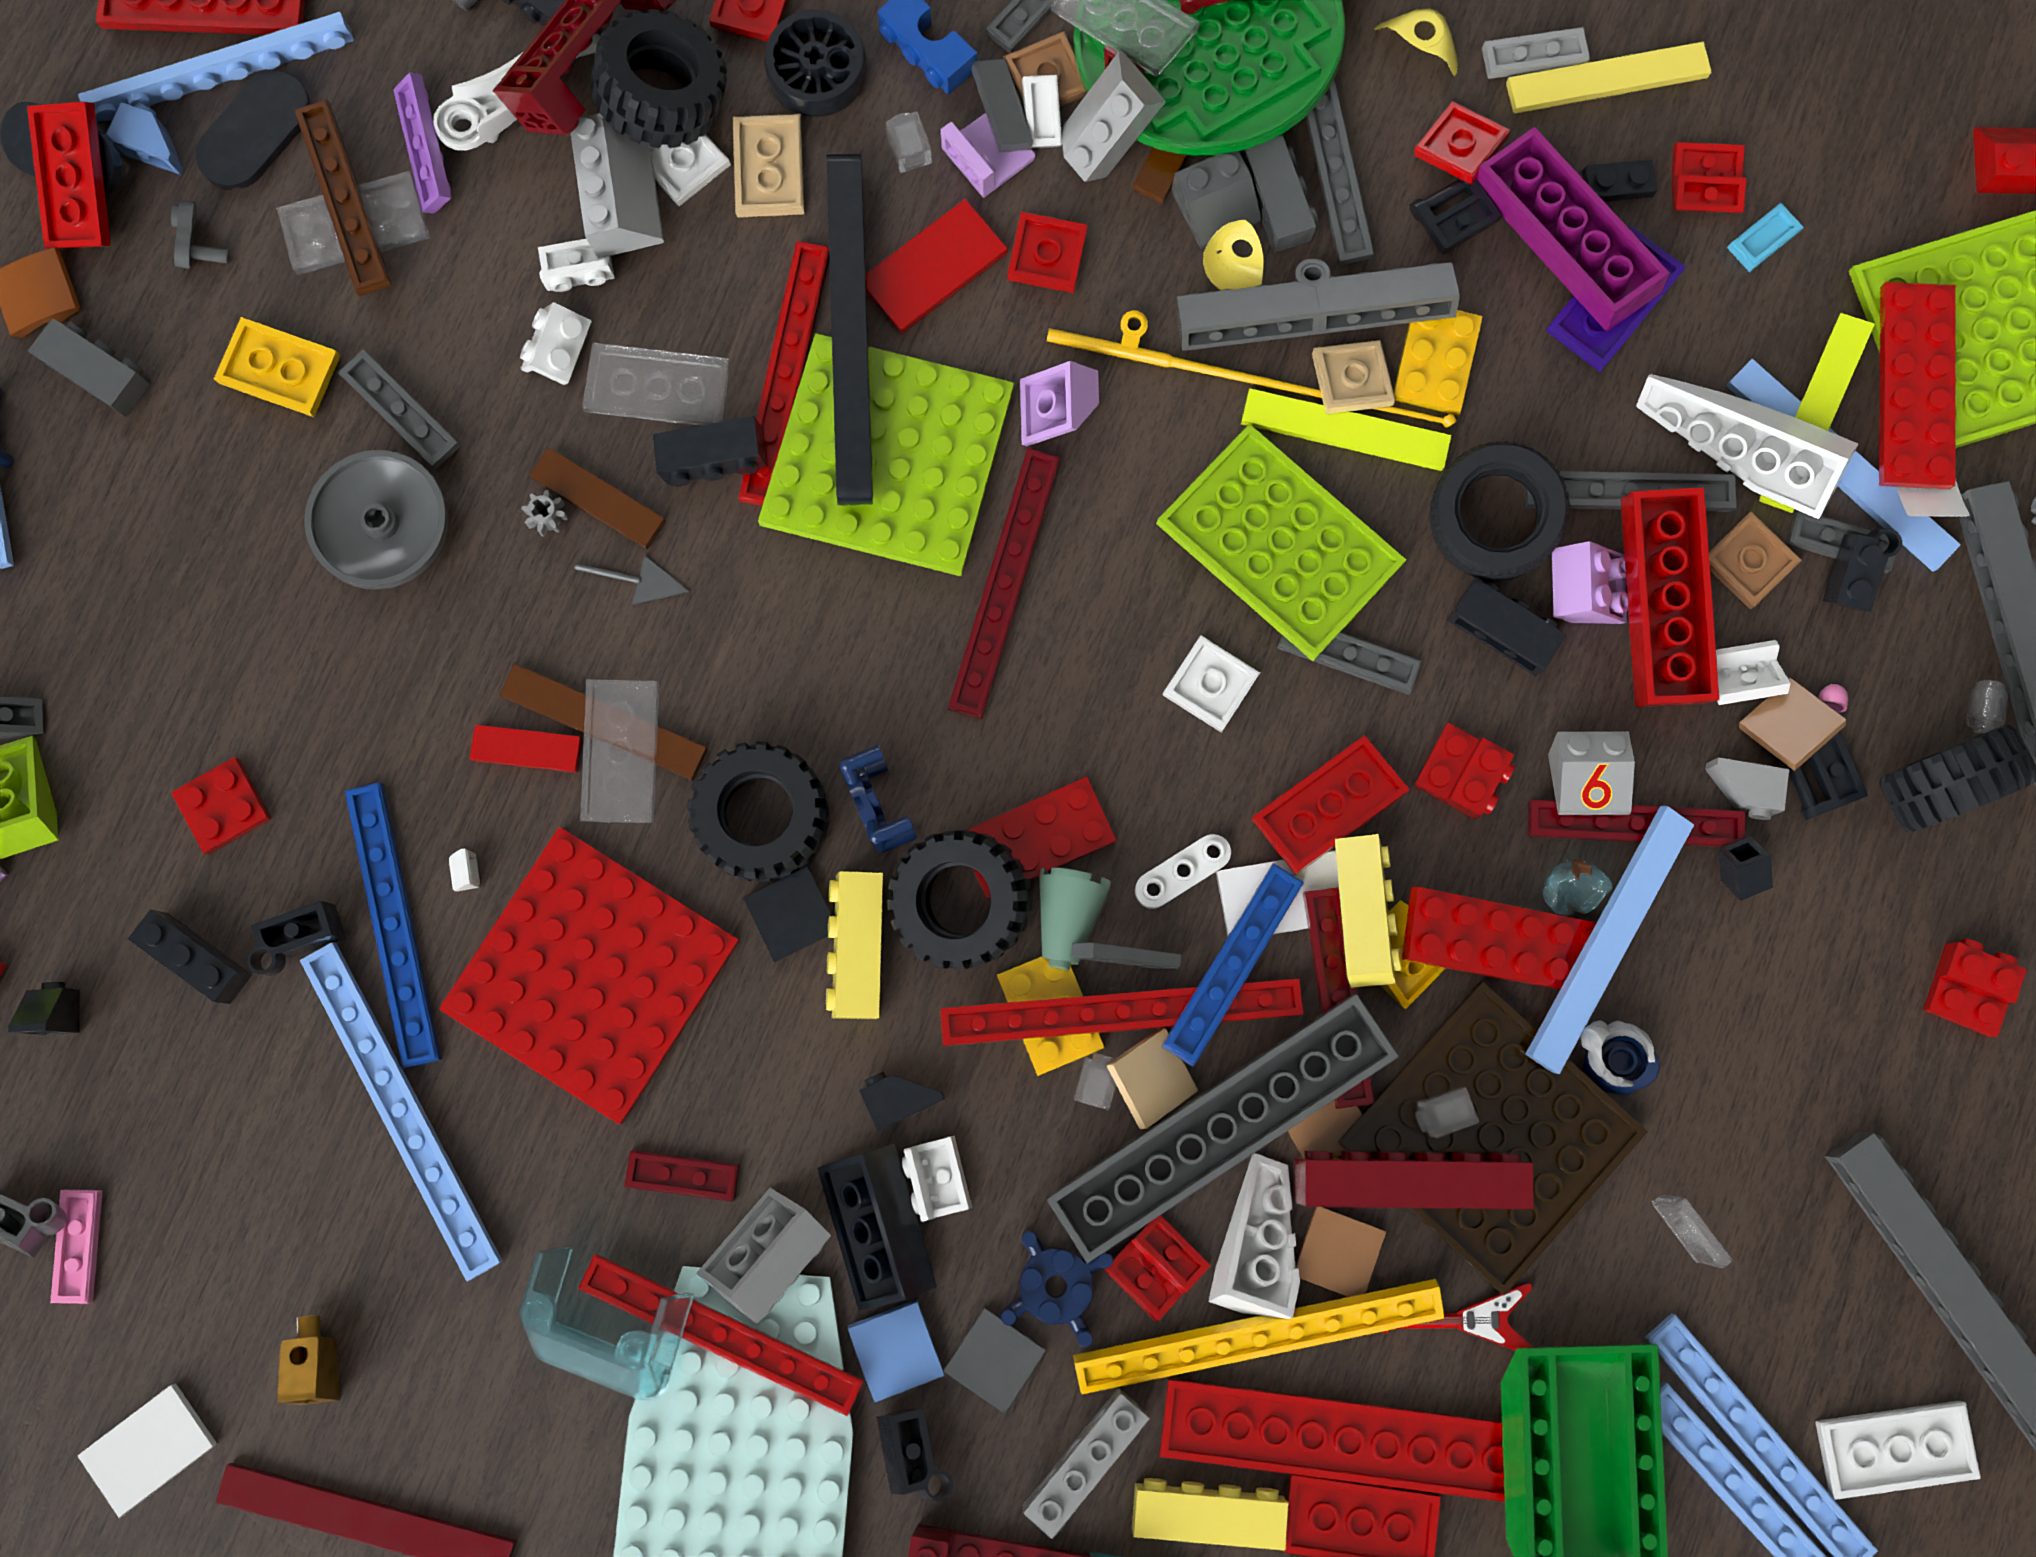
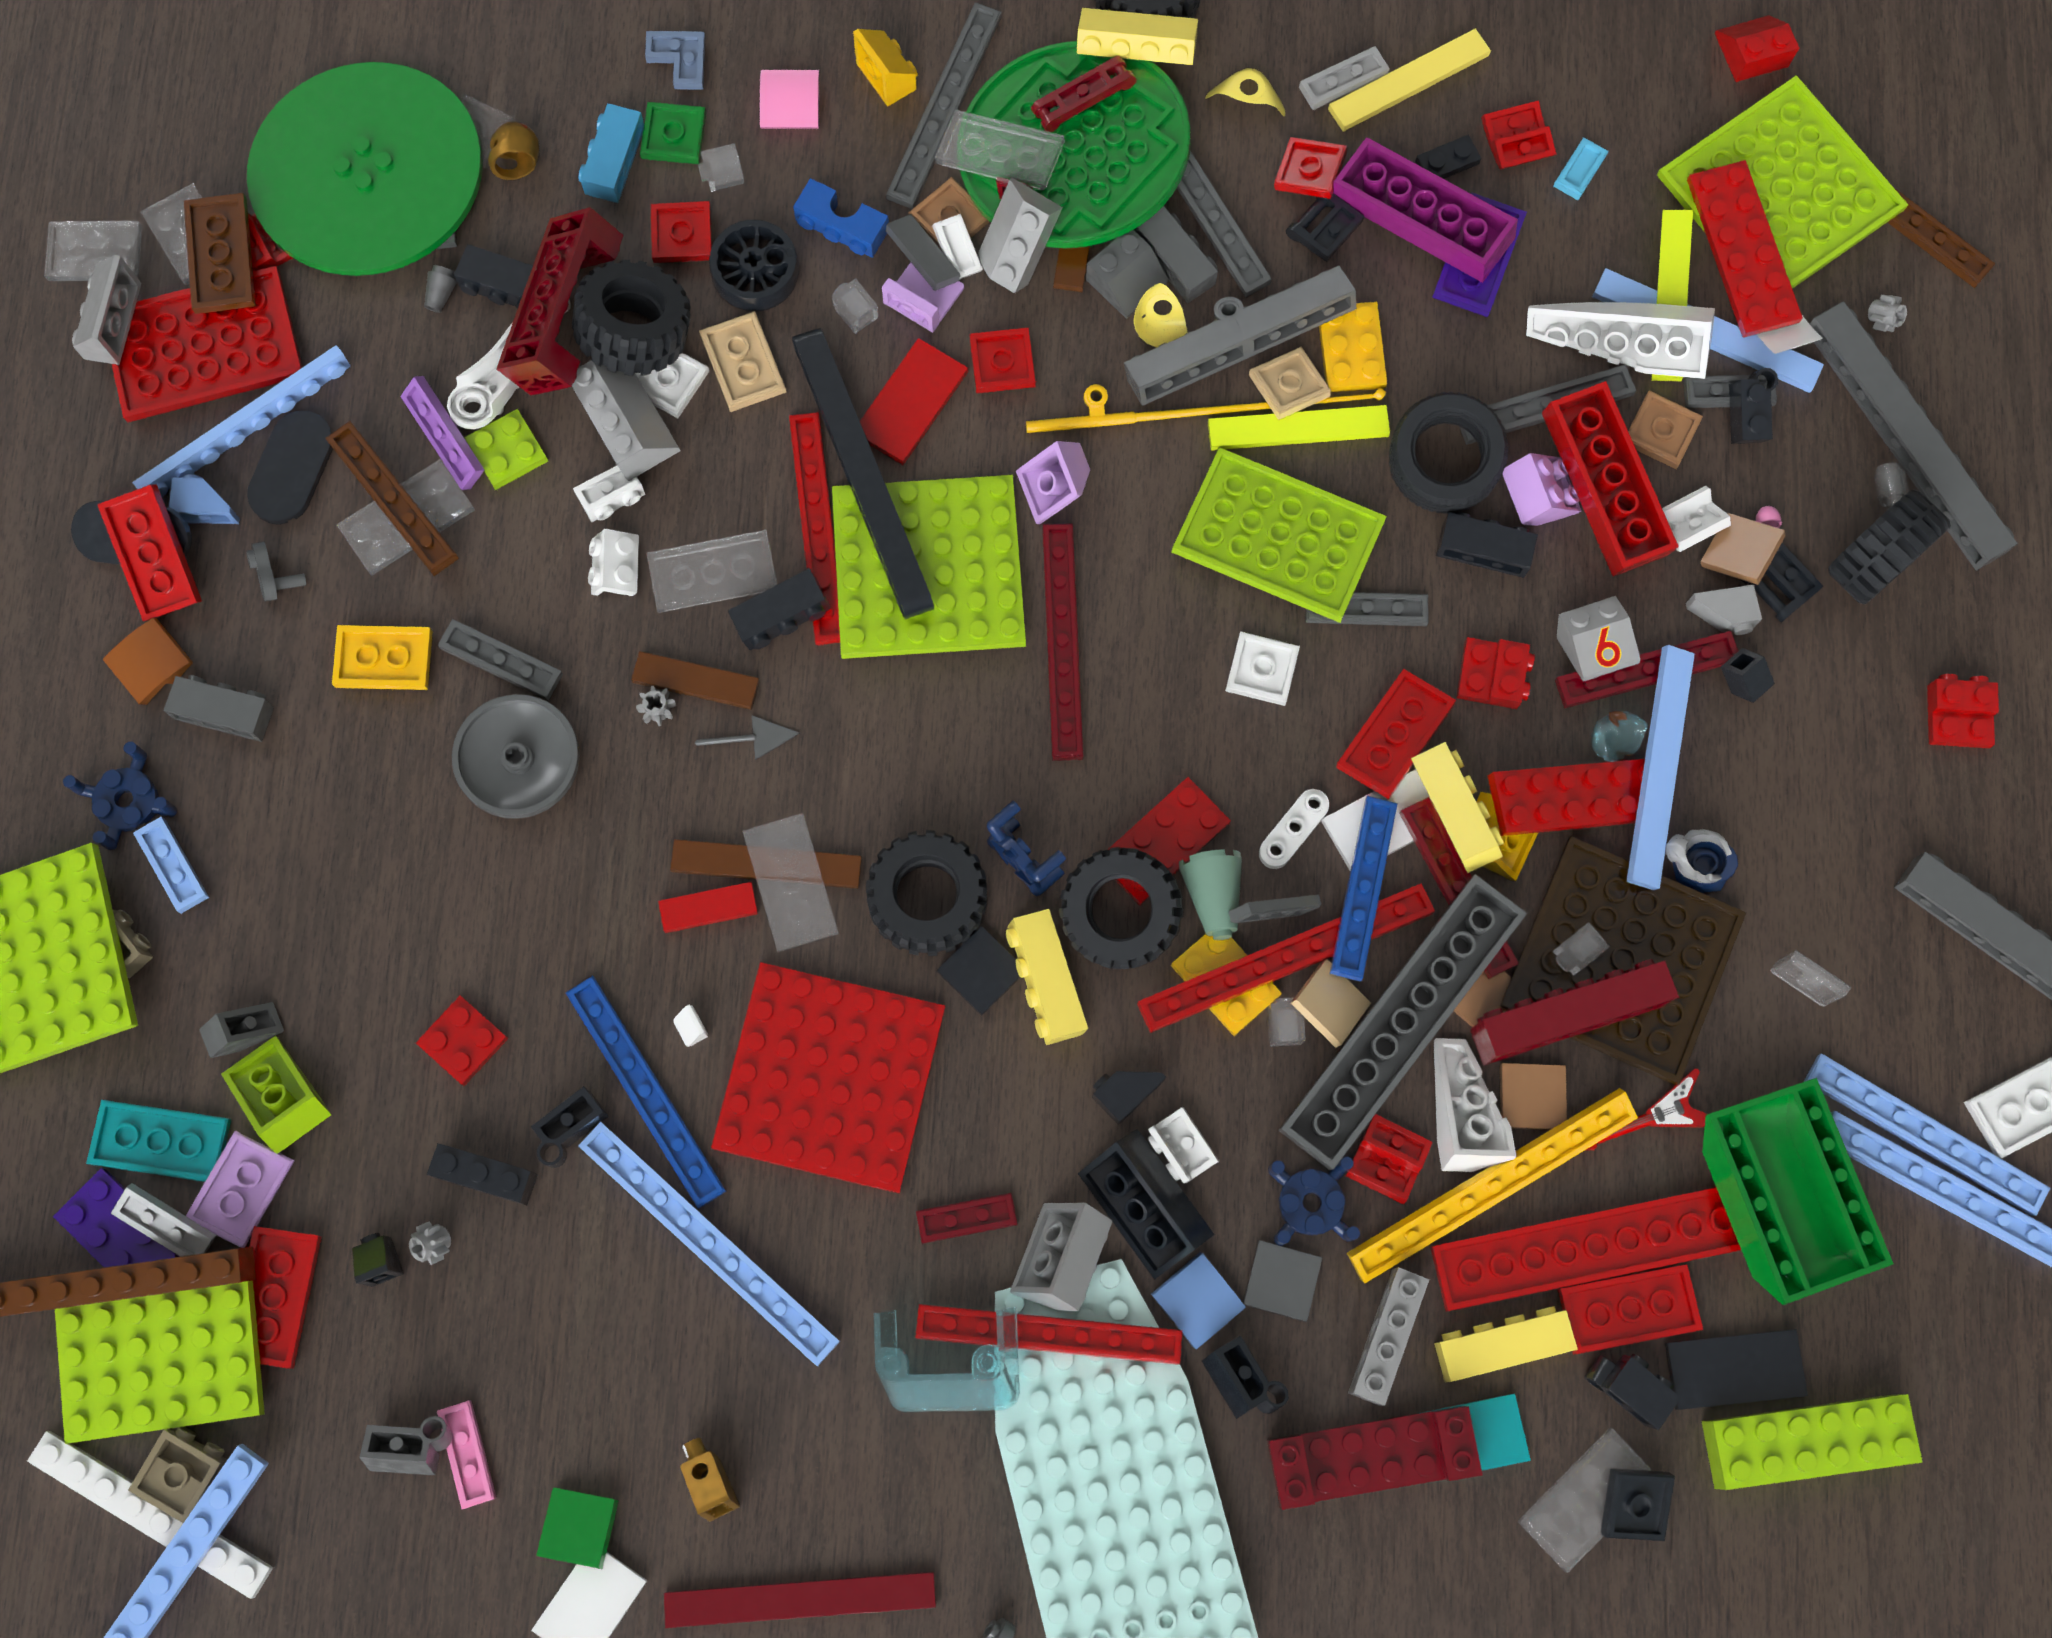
camera: 20 degrees left, 5 degrees down
(111, 1011) = (430, 1243): none -> light grey gear
(160, 1365) = (577, 1528): none -> green tile
(485, 182) = (506, 449): none -> lime plate

